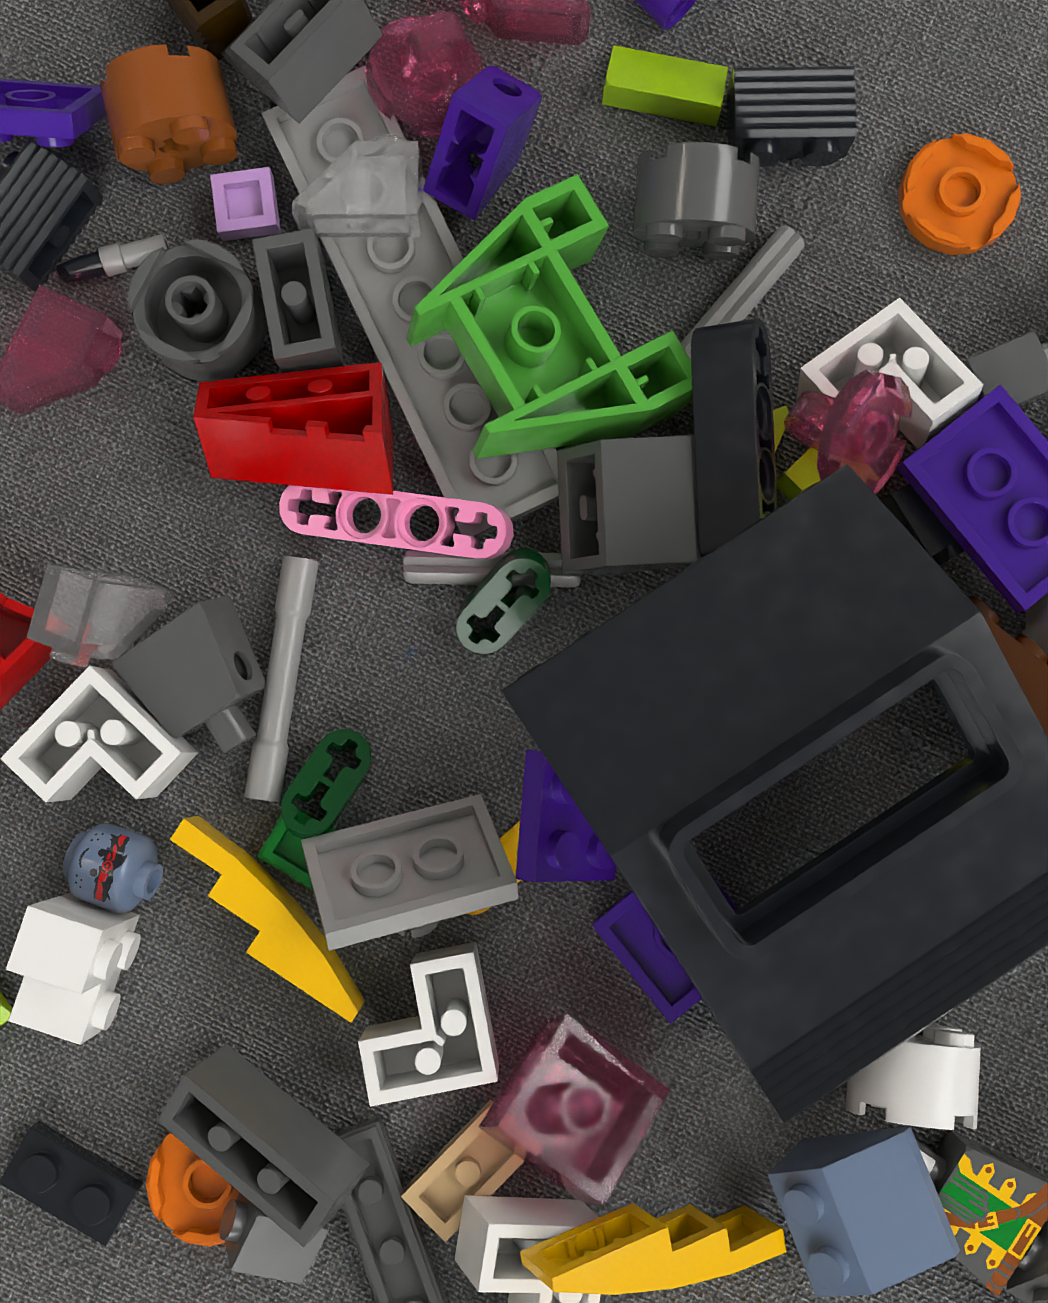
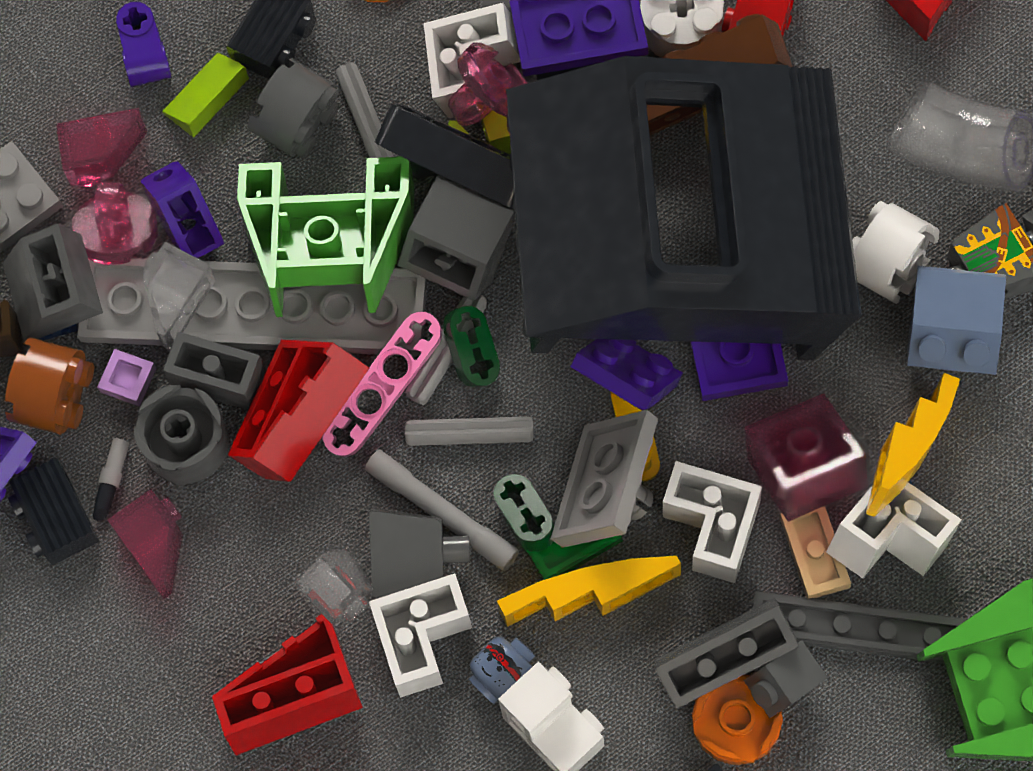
camera: 55 degrees left, 15 degrees down
(399, 656) = (469, 431): none -> light grey axle

